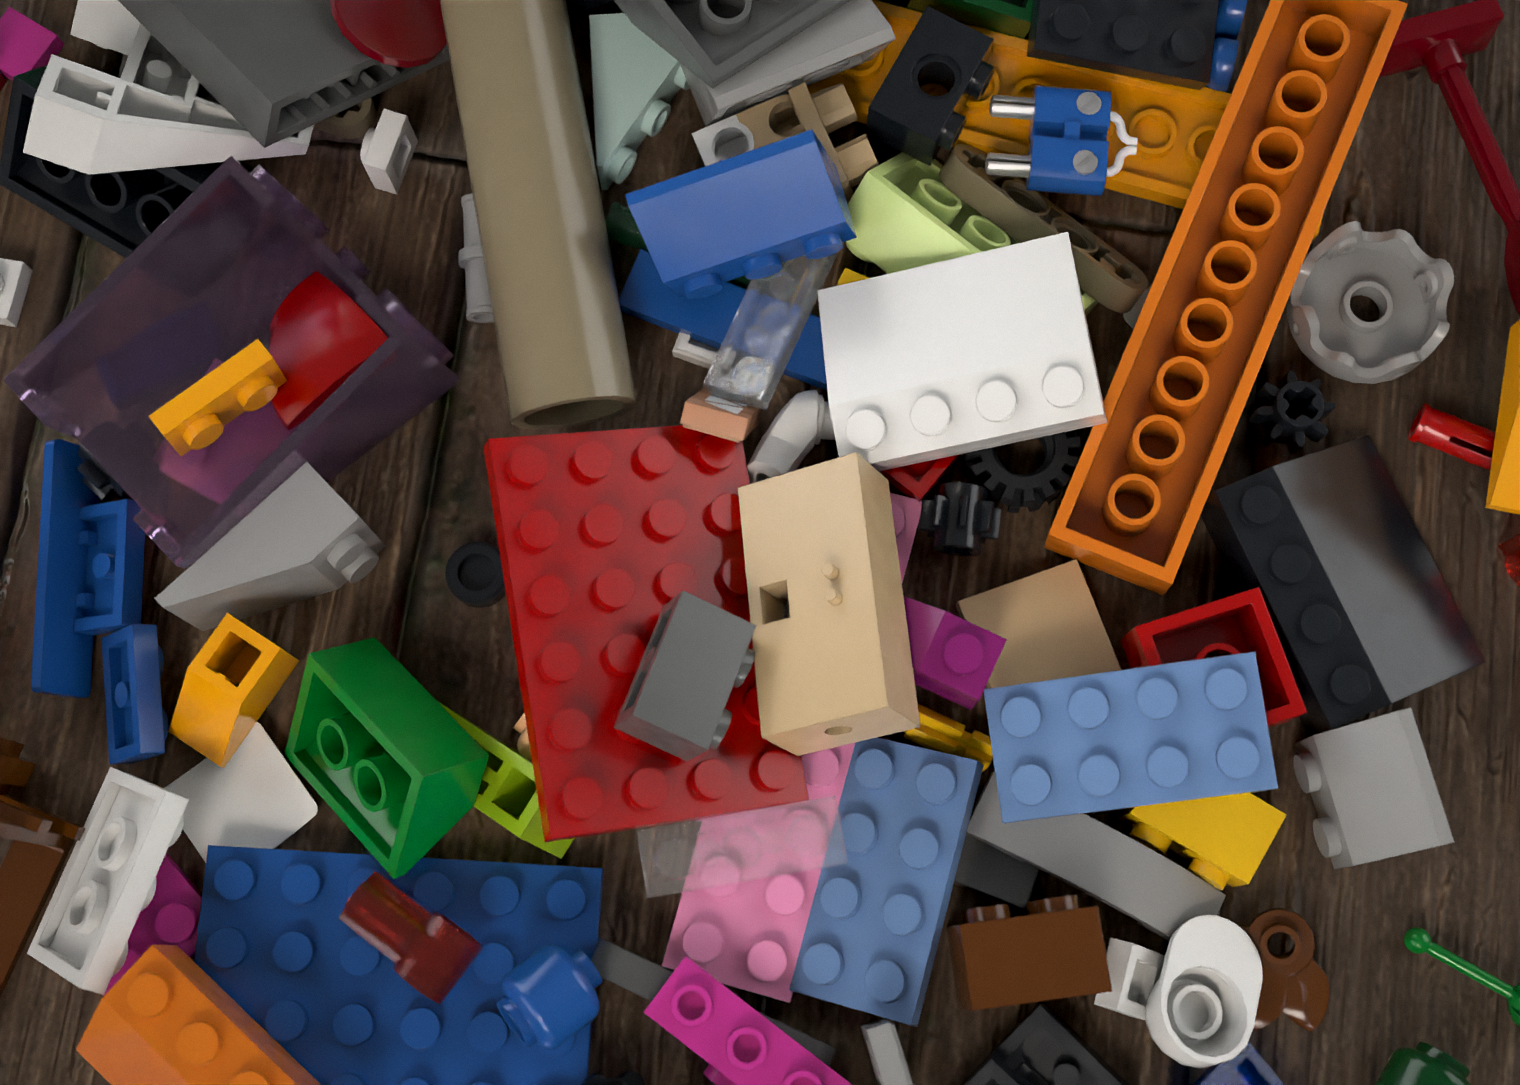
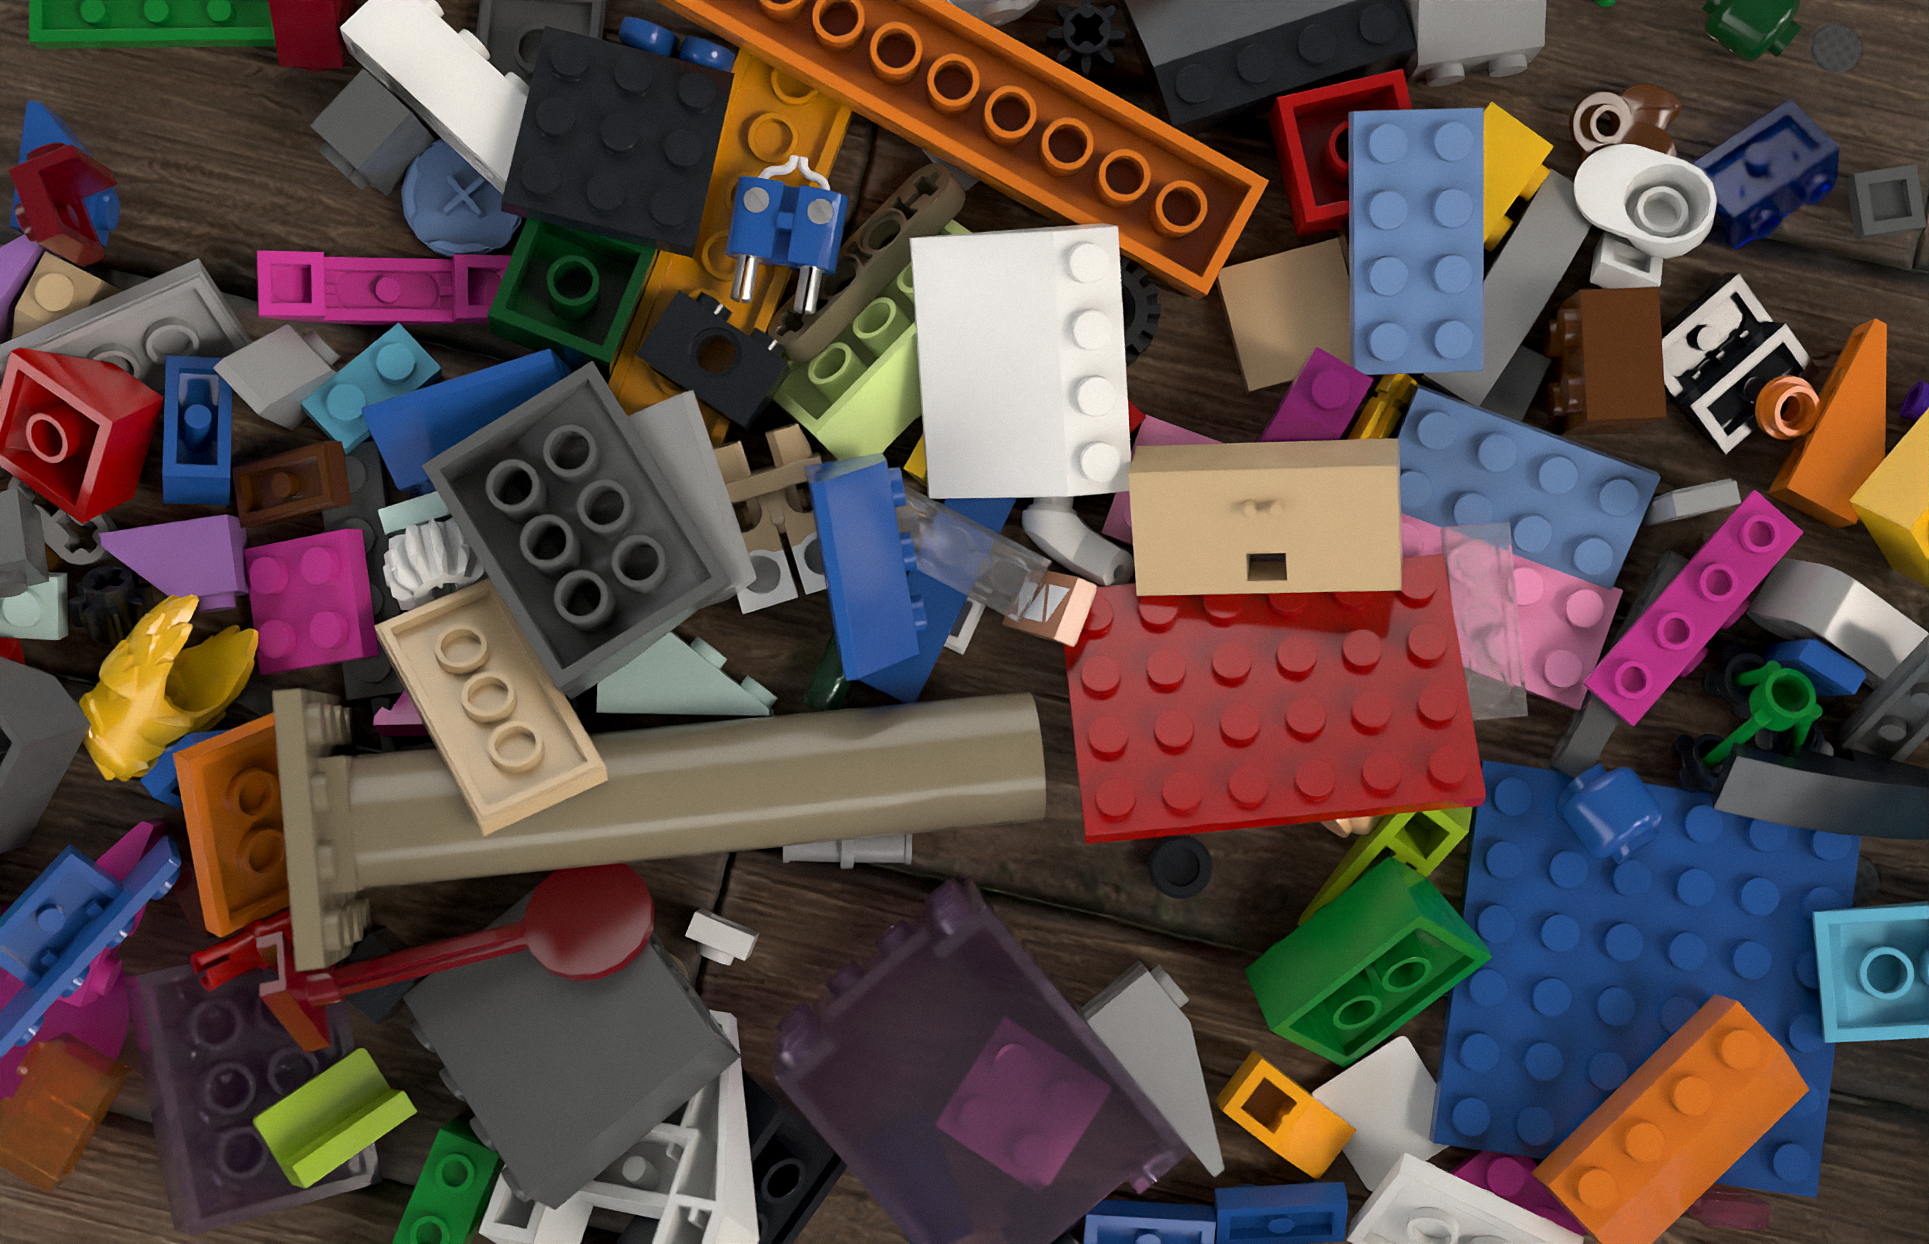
camera: 85 degrees left, 10 degrees up
(204, 408) = (1023, 1133): light orange plate -> none
(317, 345) = (938, 1018): red brick -> none
(424, 946) = (1557, 929): clear red piece -> none
(687, 677) = (1339, 656): dark grey brick -> none
(960, 519) = (1171, 380): black gear -> none

